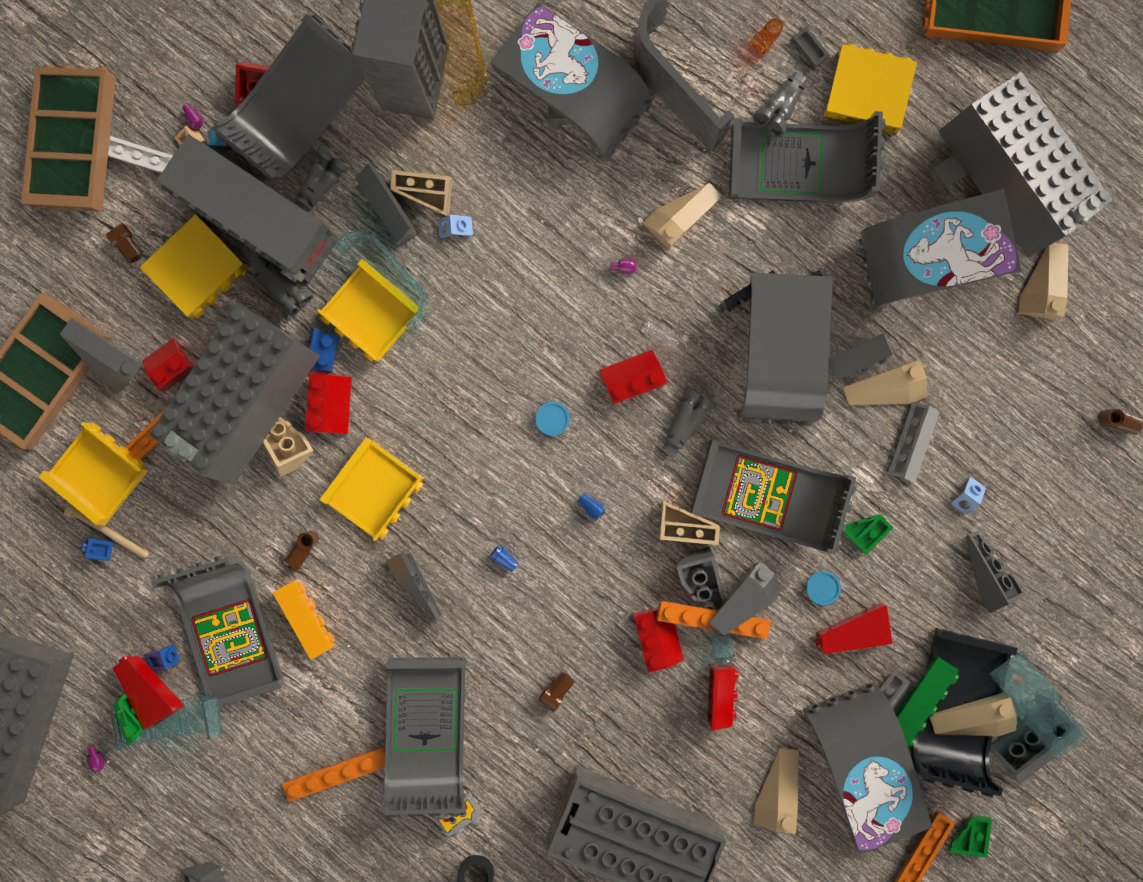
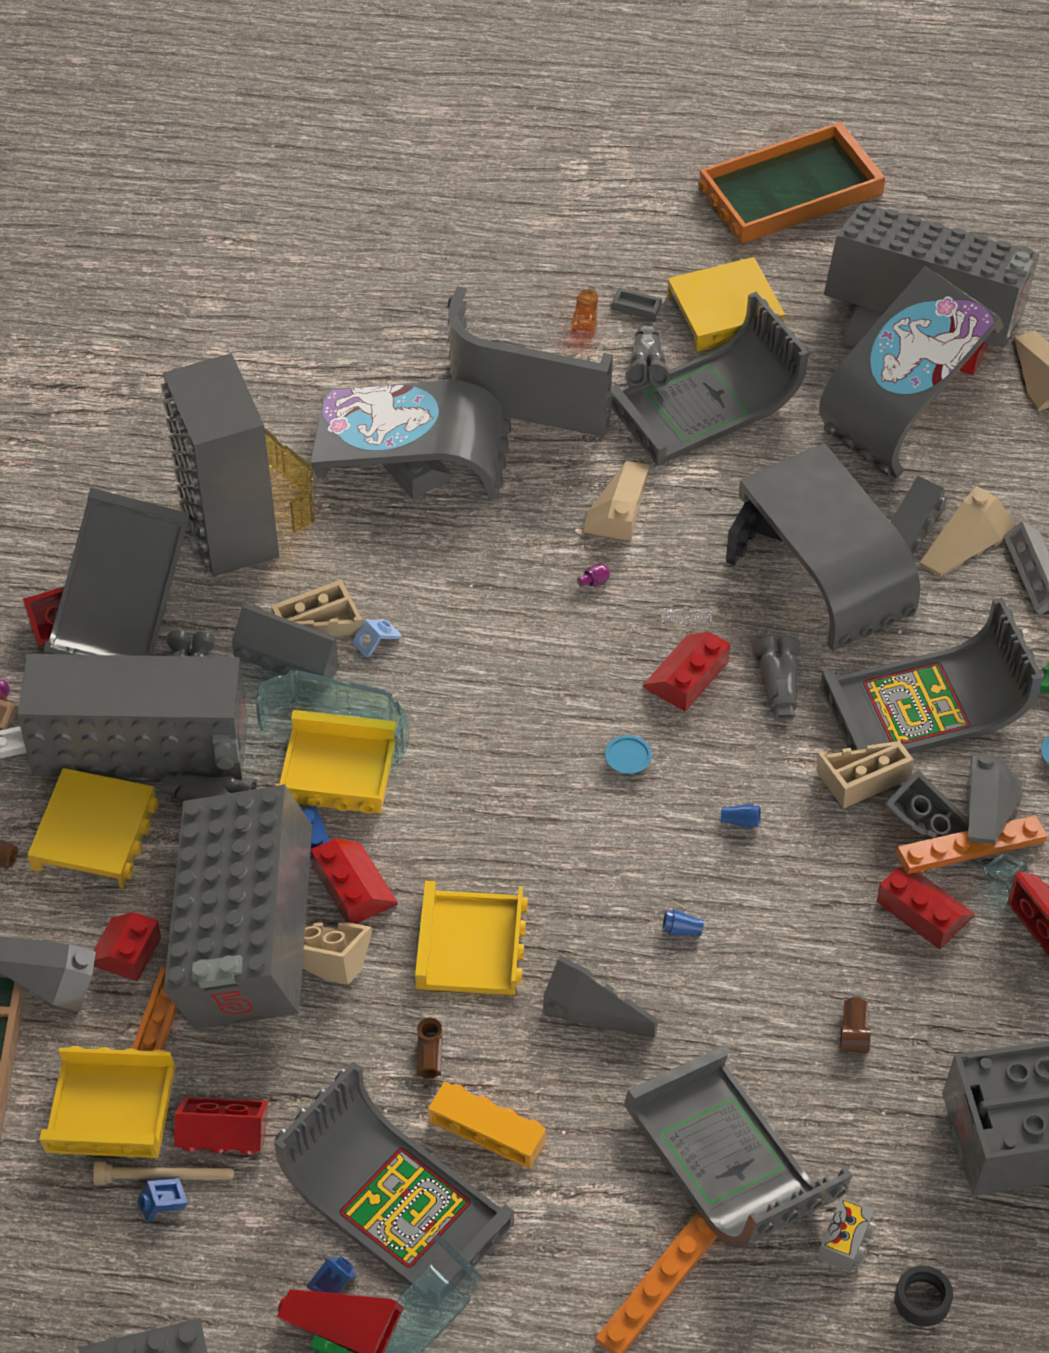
camera: 35 degrees left, 35 degrees down
(155, 521) = (221, 1124): none -> red slope

